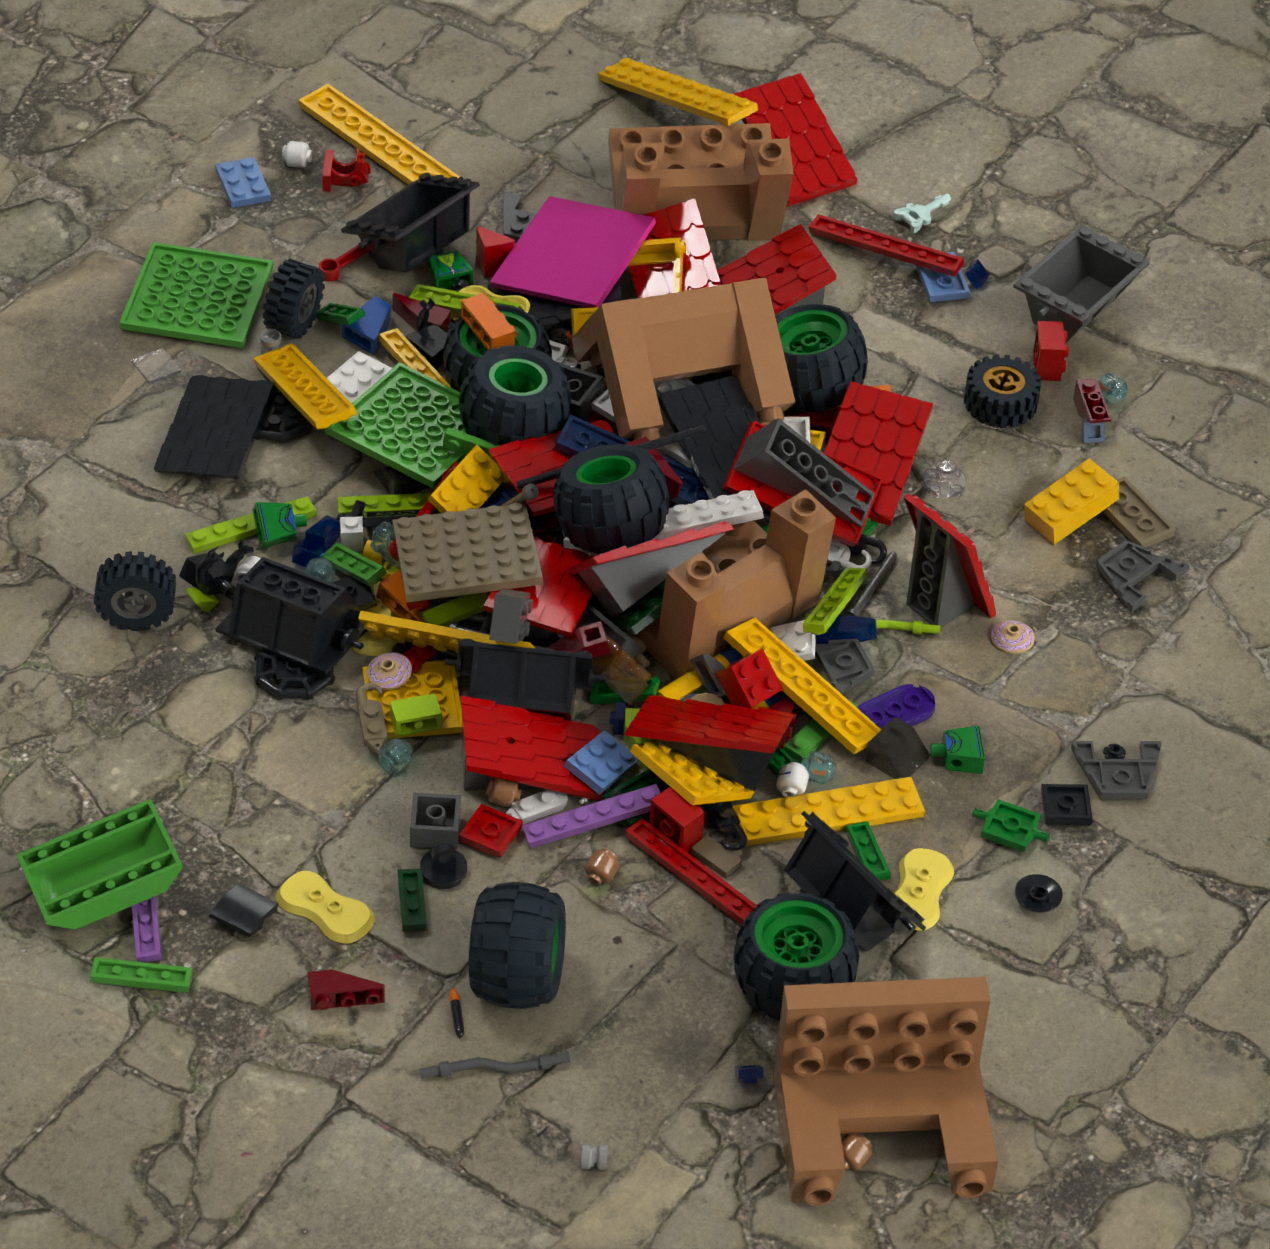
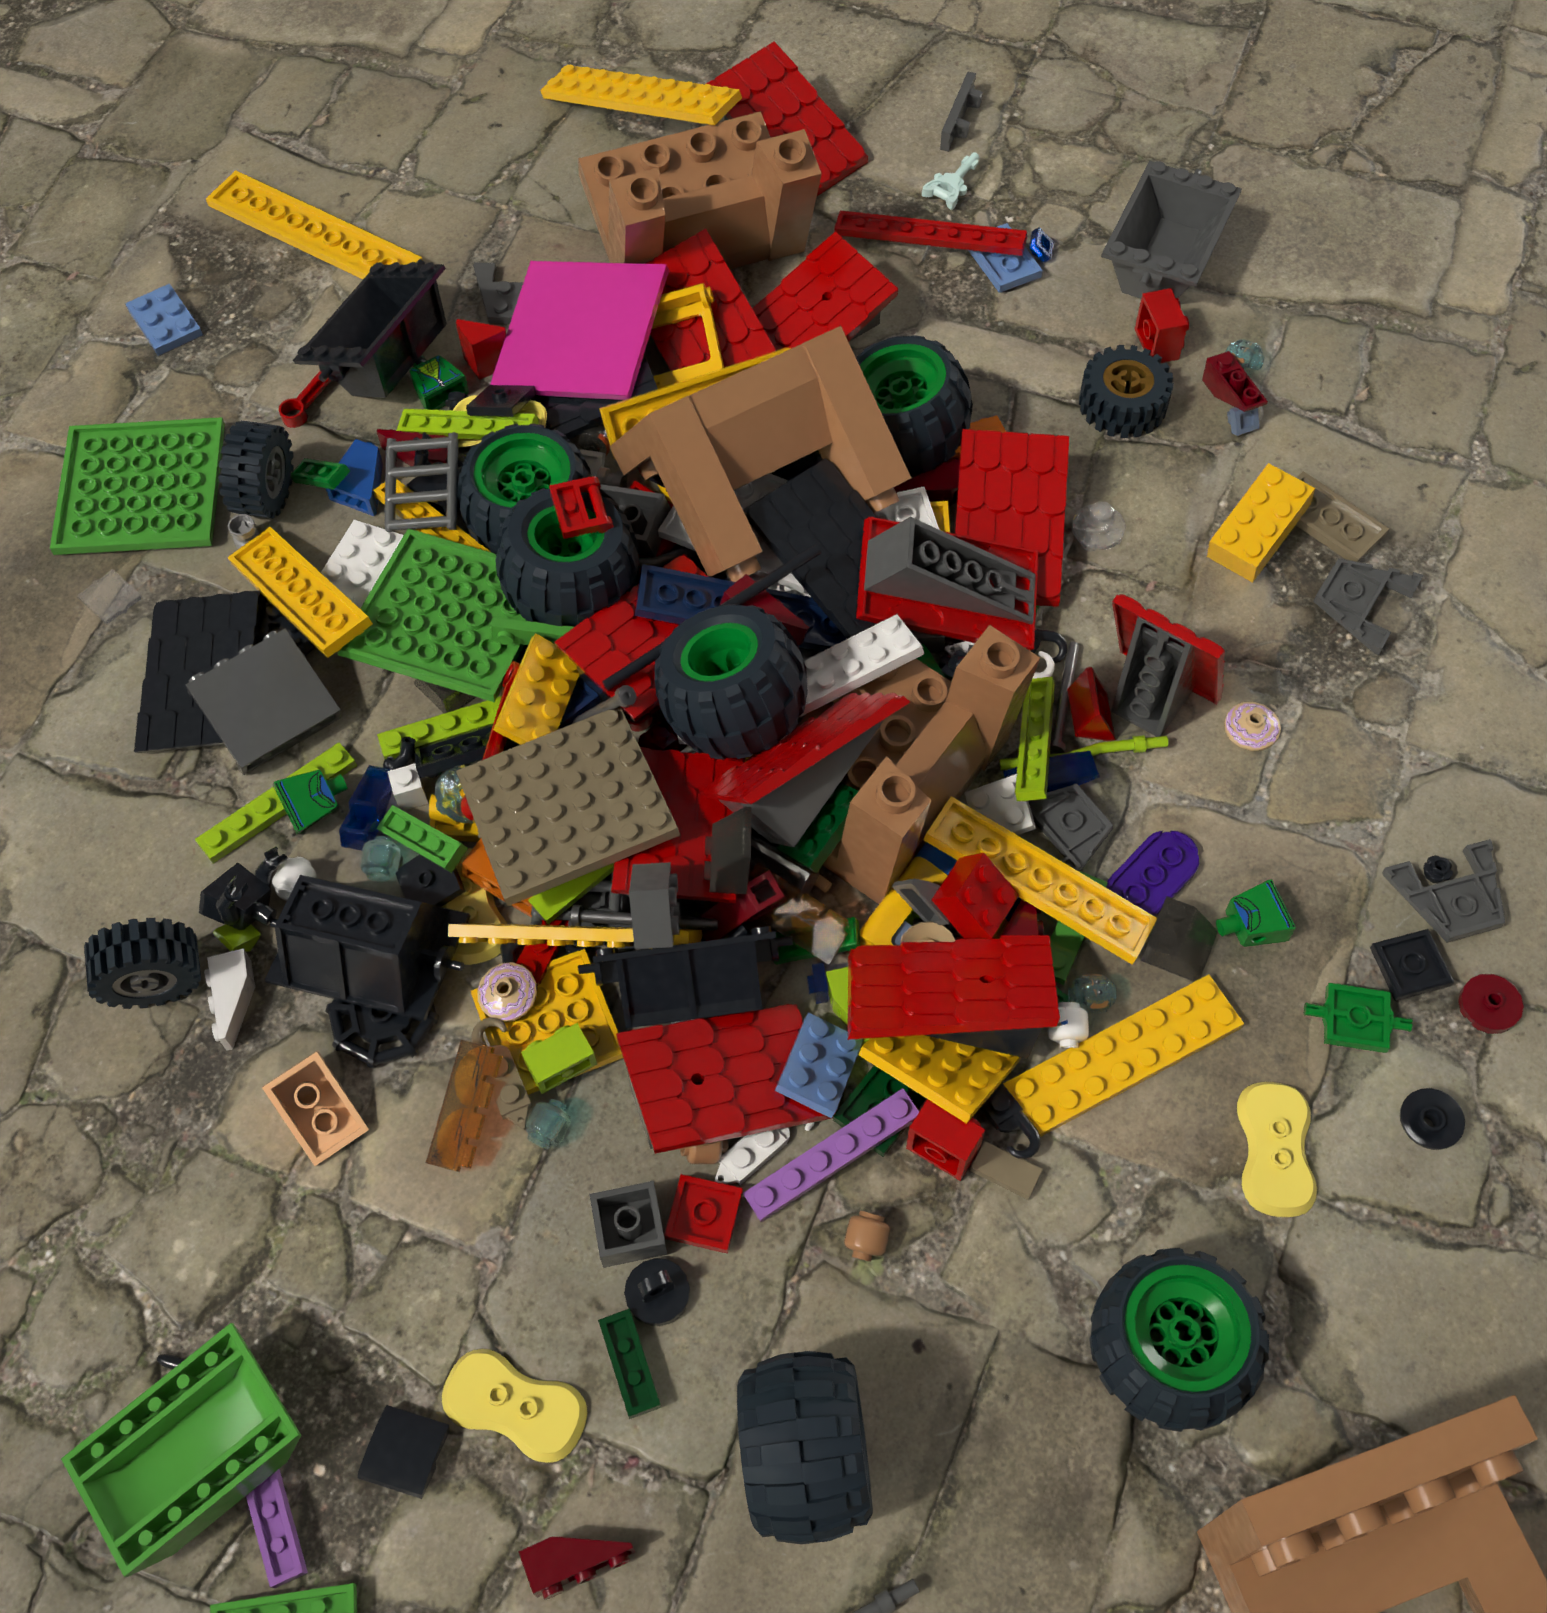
camera: 10 degrees left, 15 degrees up
(190, 630) = (232, 989): none -> white slope
(232, 708) = (315, 1108): none -> light nougat slope
(260, 454) = (263, 700): none -> dark grey panel
(297, 154) = (219, 269): white head -> none
(336, 733) = (458, 1113): none -> clear orange windscreen
(345, 174) = (280, 282): red tile -> none
(438, 345) = (393, 472): none -> dark grey bar
(454, 999) = (740, 1547): black piece -> none
(487, 322) = (506, 458): orange brick -> none
(497, 290) = (501, 400): none -> black plate
(526, 361) = (571, 507): none -> red plate
(575, 600) = (729, 853): none -> clear smoke slope
(690, 870) = (1000, 1216): red plate -> none
(749, 1073) = (1167, 1540): clear blue plate -> none
(832, 872) = (1206, 1194): black piece -> none
(867, 849) = (1194, 1107): green tile -> none
(889, 594) = (1090, 707): none -> red slope
(940, 167) = (955, 125): none -> dark grey hinge
(1116, 841) = (1485, 1016): none -> dark red plate

